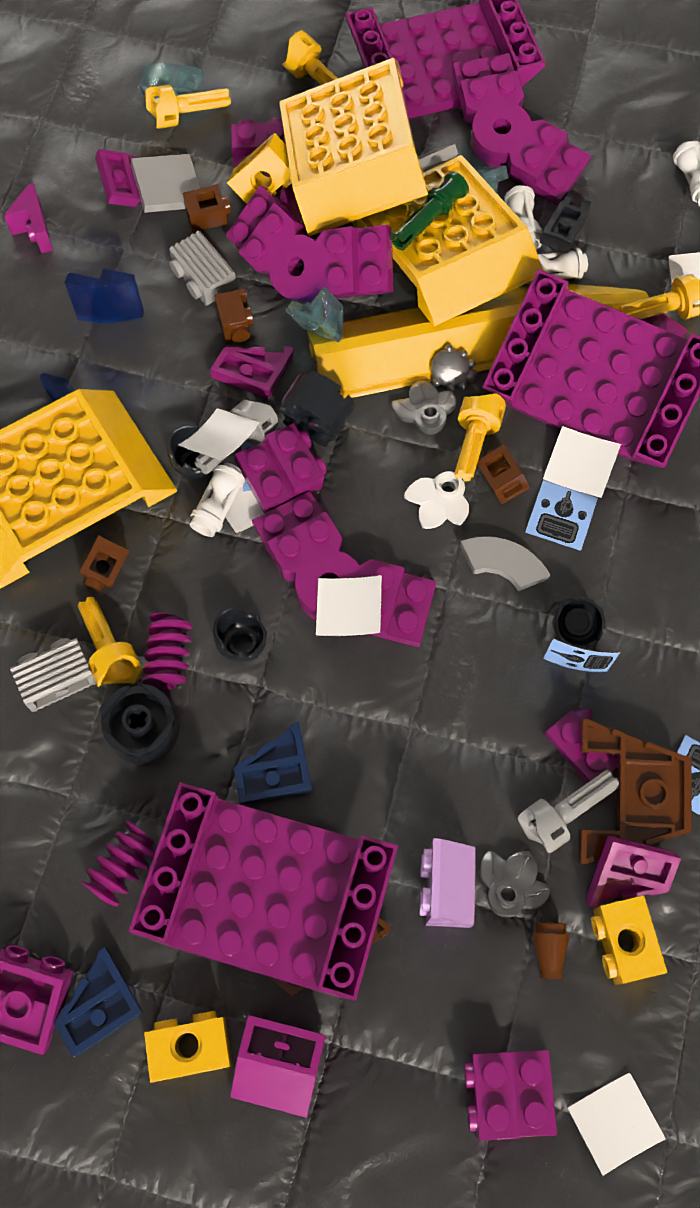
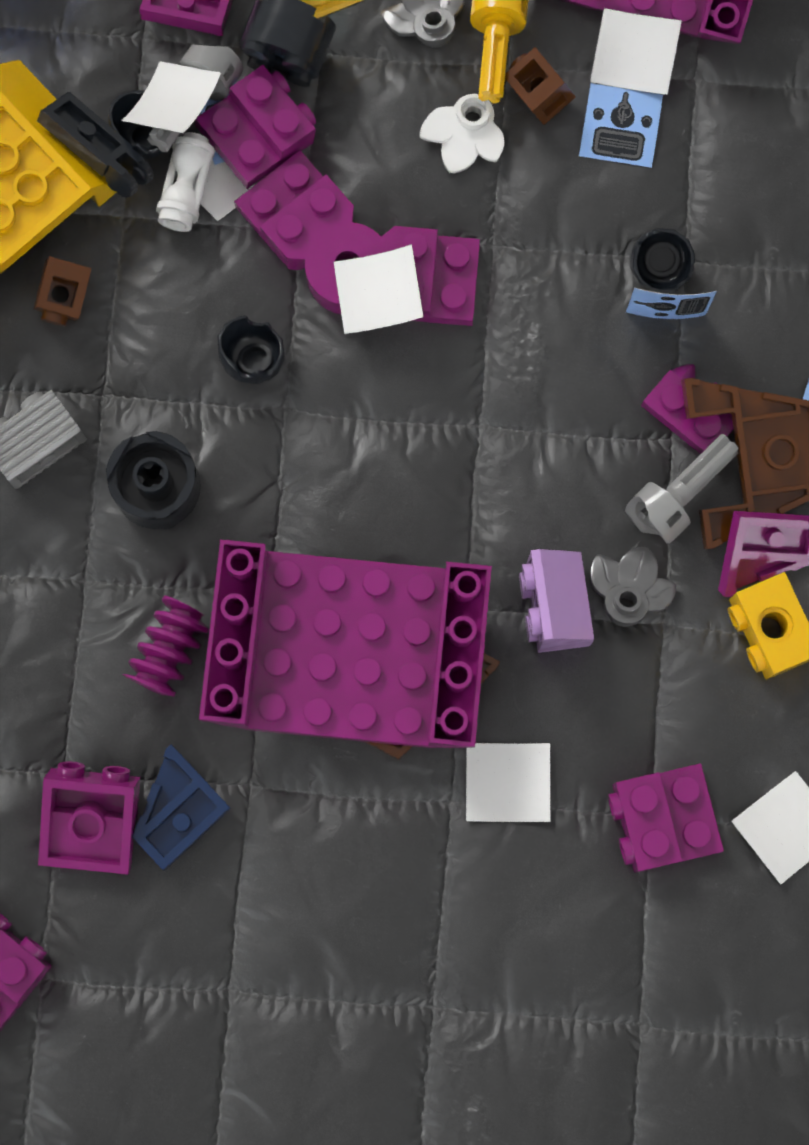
camera: 10 degrees left, 10 degrees up
(113, 660) = (101, 410): yellow piece -> none
(154, 459) = (96, 144): none -> black hinge
(164, 1053) = (319, 839): yellow brick -> none
(165, 651) = (164, 385): magenta piece -> none
(275, 770) = (326, 505): dark blue wing -> none
(277, 1066) = (398, 835): magenta slope -> none
(381, 1035) = (508, 782): none -> white sticker
(506, 559) = (559, 195): light grey tile -> none
(551, 948) = (686, 651): reddish brown cone -> none

